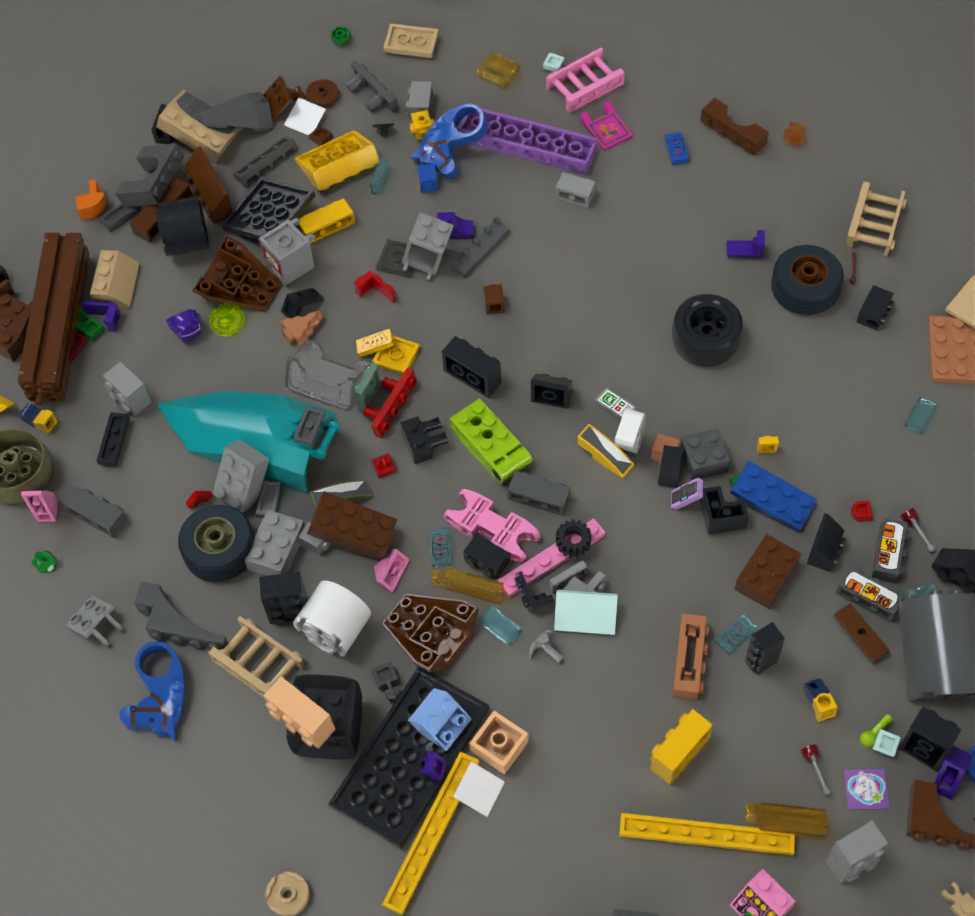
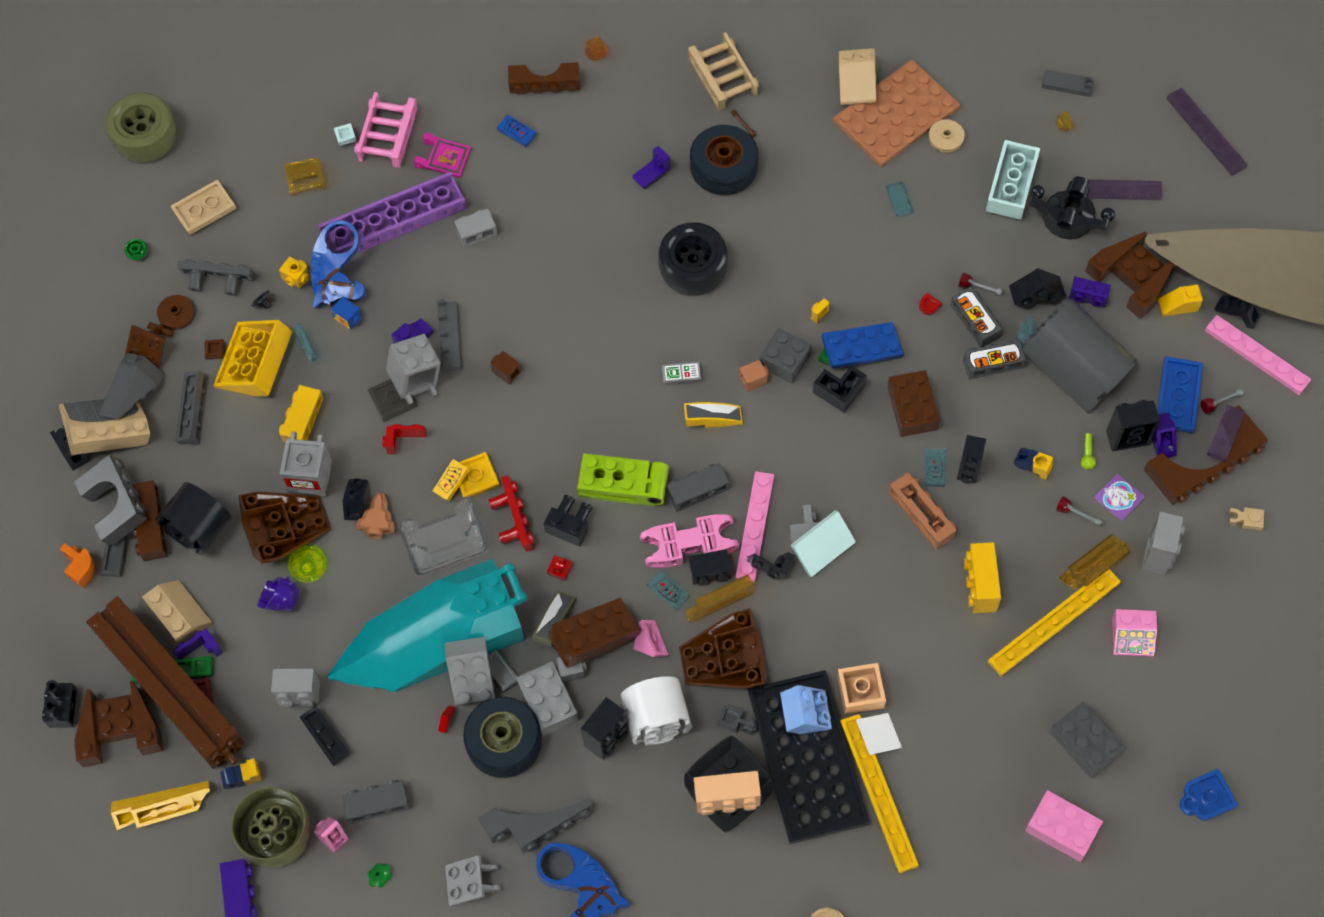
camera: 45 degrees left, 5 degrees up
(208, 186) = (169, 466): reddish brown slope -> none
(237, 667) = (638, 809): tan fence -> none
(266, 207) = (245, 446): black plate -> none
(304, 116) = (183, 344): white sticker -> none
(309, 426) = (495, 584): dark grey plate -> none
(368, 387) = (487, 519): sand green plate -> none
(419, 97) = (268, 252): light grey brick -> none
(434, 766) = (838, 746): dark purple tile -> none
(472, 366) = (549, 434): black brick -> none
(499, 625) = (770, 607): clear light blue plate -> none
(542, 641) = (816, 590): light grey plant -> none
(551, 390) = (626, 401): black slope -> none
(561, 580) = (783, 528): light grey tile -> none
(577, 528) = (760, 487): black tyre -> none
(630, 430) = (723, 382): white beam -> none
(670, 466) = (771, 384): black slope -> none
(687, 493) = (804, 395): tile -> none
(826, 544) = (932, 349): black slope -> none
(853, 624) = (1024, 395): reddish brown tile -> none
(875, 308) = (791, 142): black brick -> none
(886, 743) = (1103, 454): light aqua plate -> none

